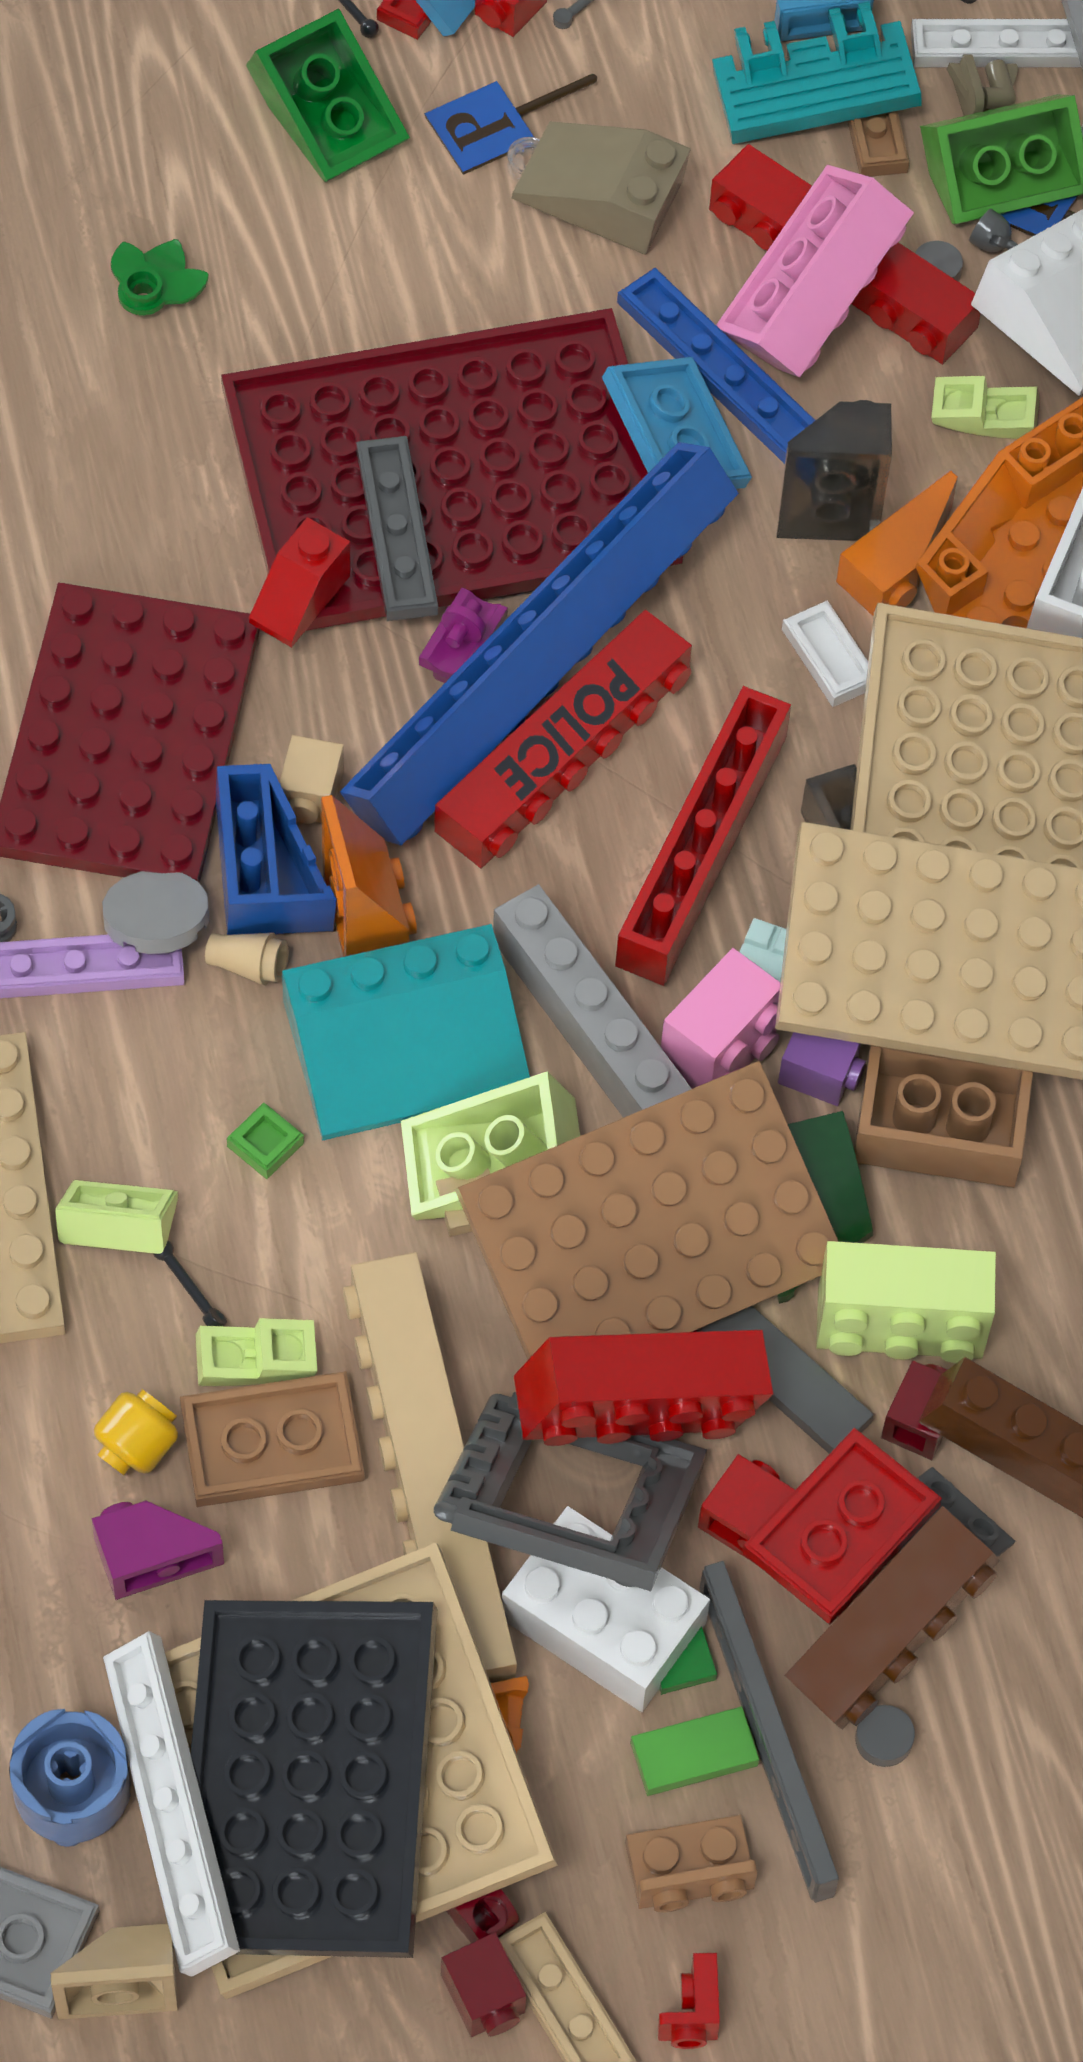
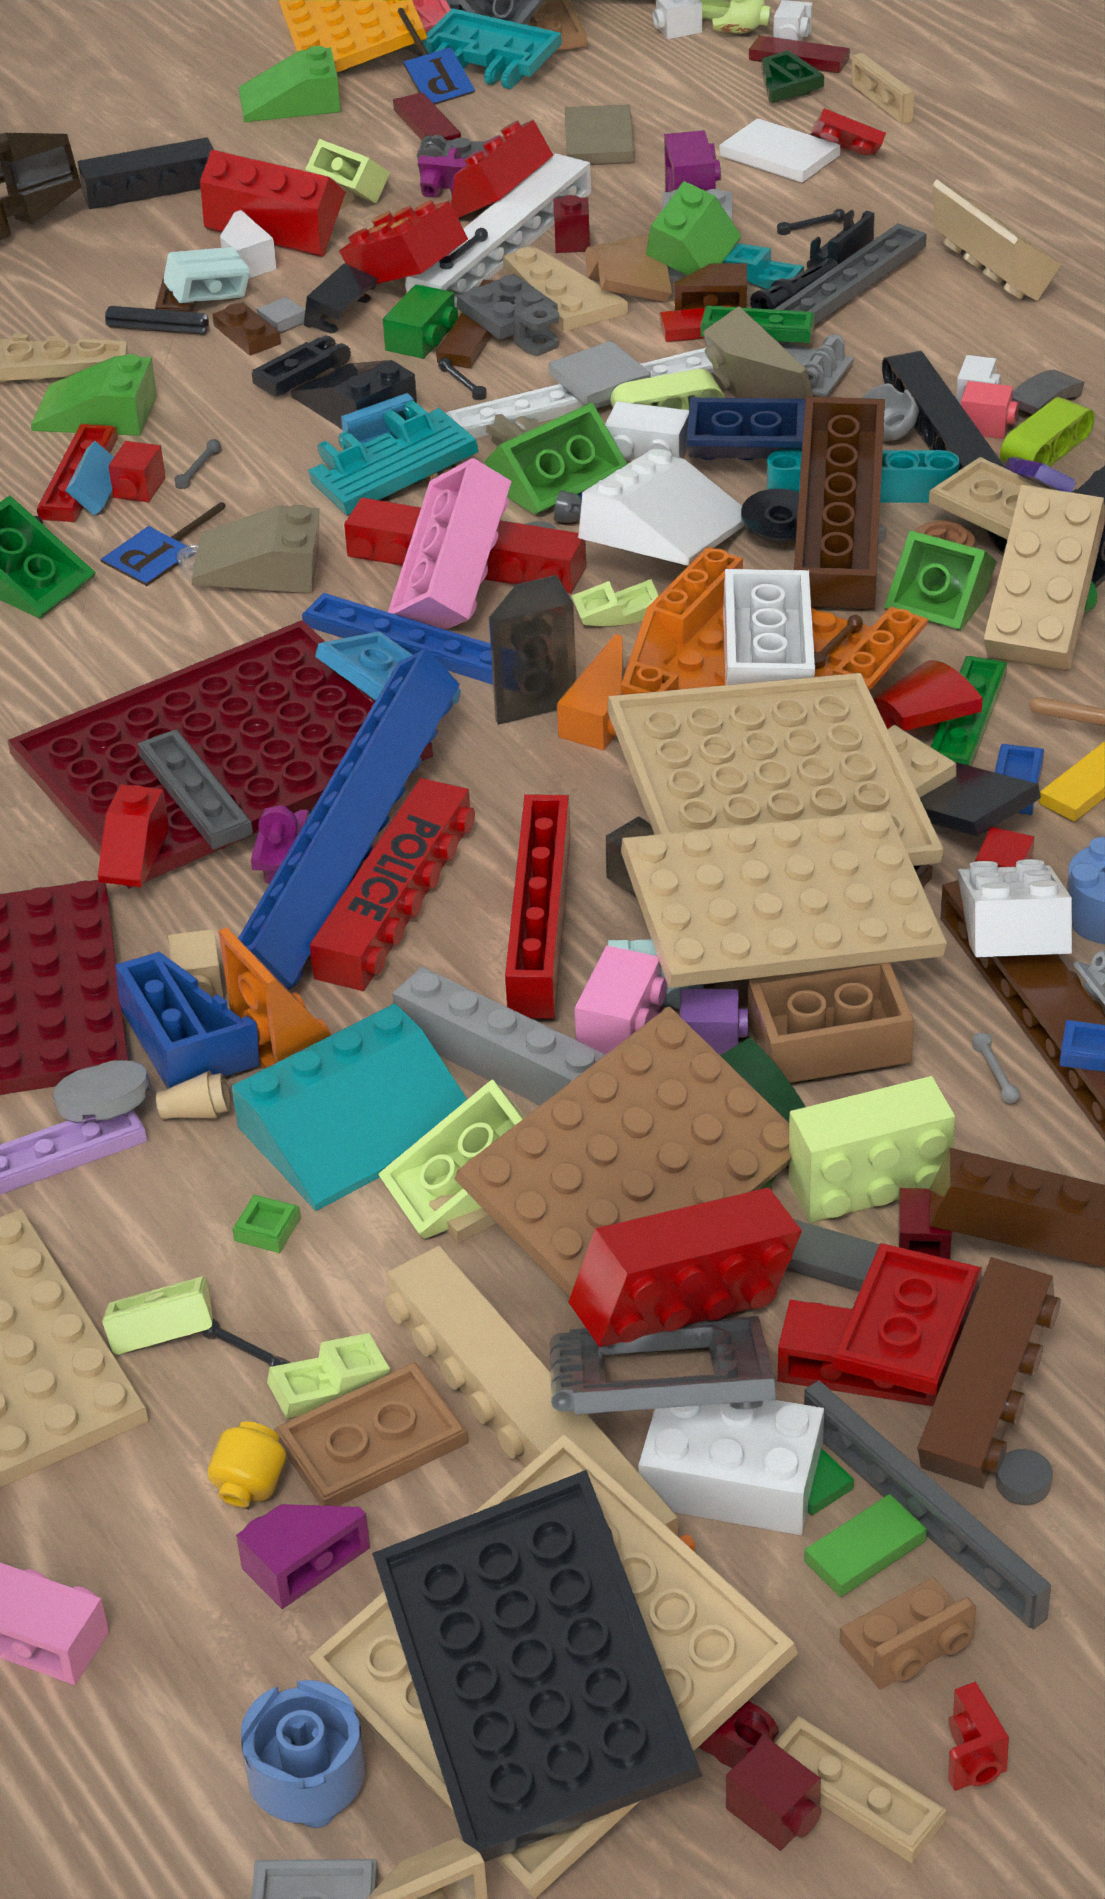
camera: 15 degrees left, 20 degrees down
(171, 1805) = (416, 1735): white tile -> none
(828, 652) = (577, 777): white tile -> none

